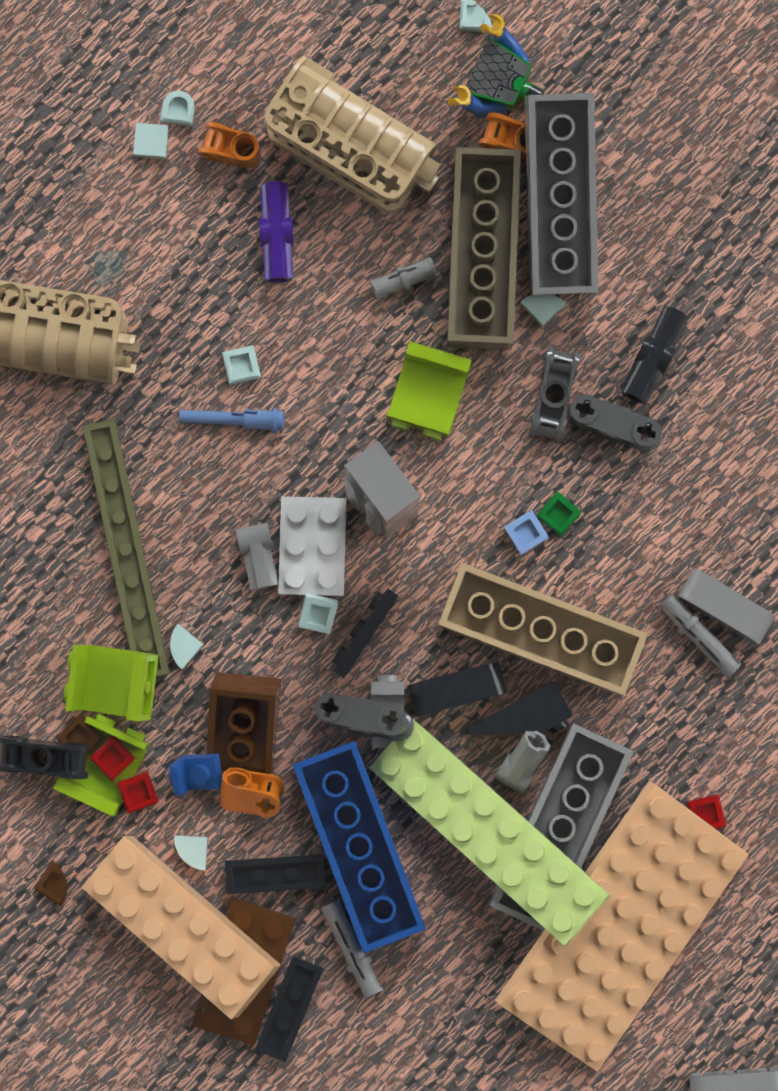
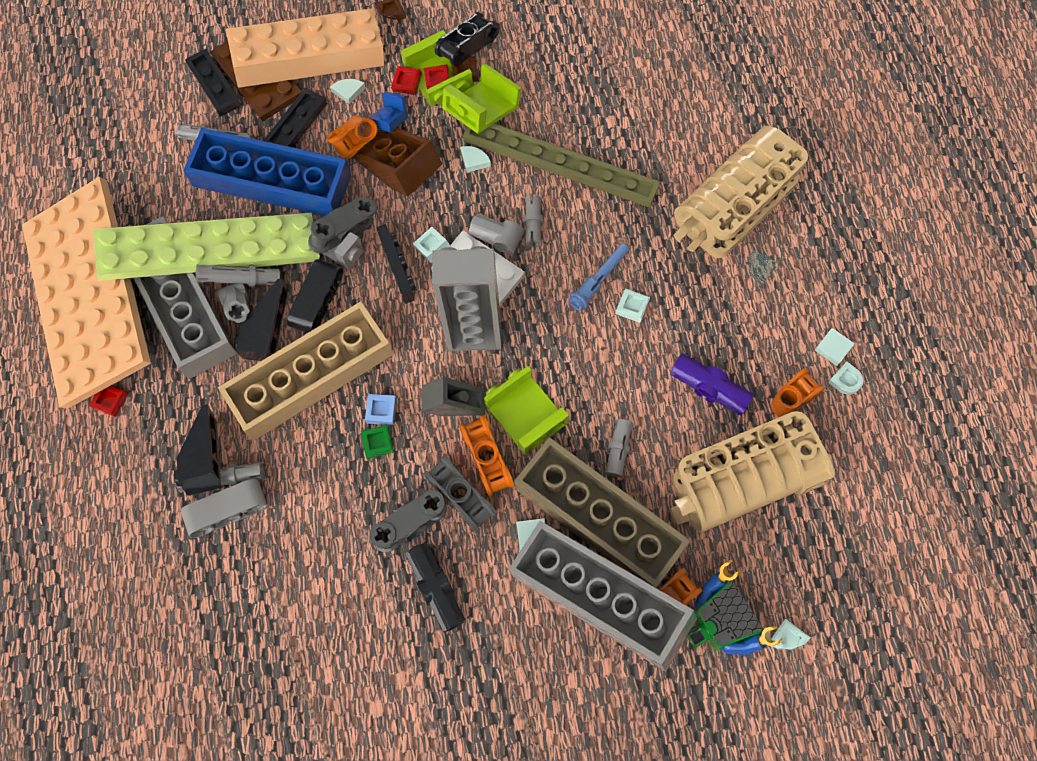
camera: 130 degrees right, 15 degrees down
(216, 529) = (533, 220): none -> light grey pin
(467, 468) = (452, 398): none -> dark grey slope
(487, 766) = (243, 275): none -> light grey pin
(488, 415) = (493, 472): none -> orange piece
(701, 661) = (199, 457): none -> black slope

